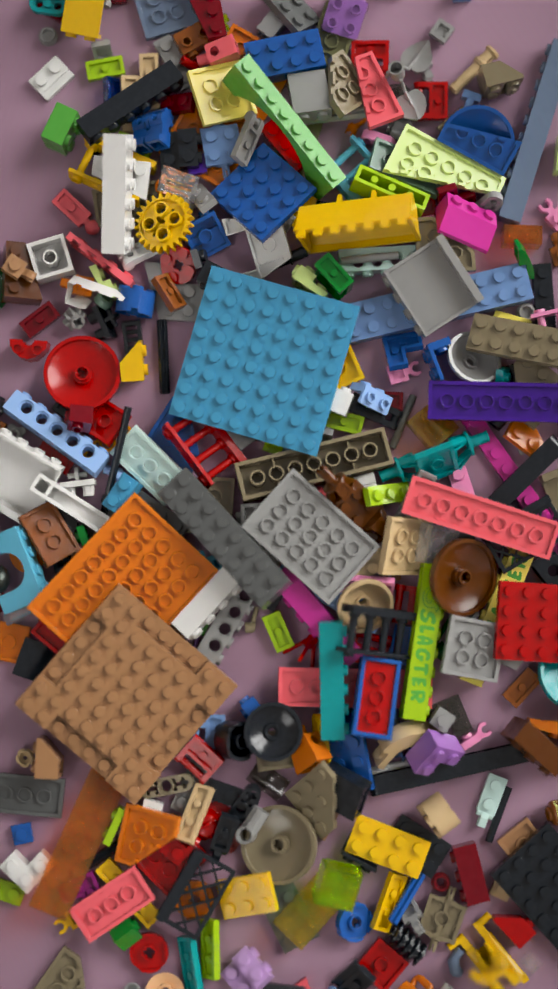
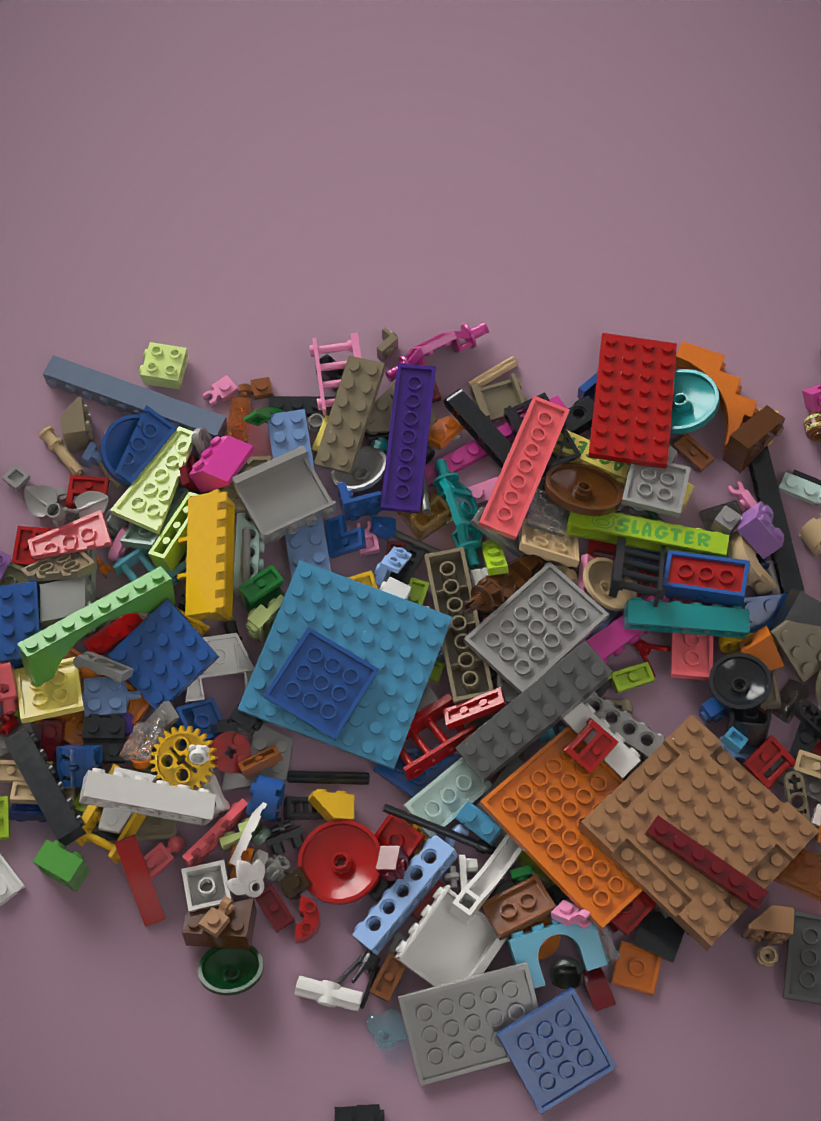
camera: 80 degrees left, 20 degrees down
(40, 577) = (569, 913): none -> bright pink plate
(53, 198) = (140, 880): none -> red slope
(59, 291) = (246, 877): none -> white plate
(59, 335) = (295, 883): none -> dark brown bracket
(88, 699) = (706, 863): none -> dark red plate
(163, 234) = (198, 754): none -> white plate
(191, 596) = (595, 751): none -> red plate
(213, 726) = (734, 740): none -> dark azure plate
(228, 483) = (474, 708): none -> red plate
(237, 338) = (321, 683): none -> blue plate
(415, 386) = (383, 526): none -> blue slope
(444, 423) = (425, 498): none -> dark grey bar

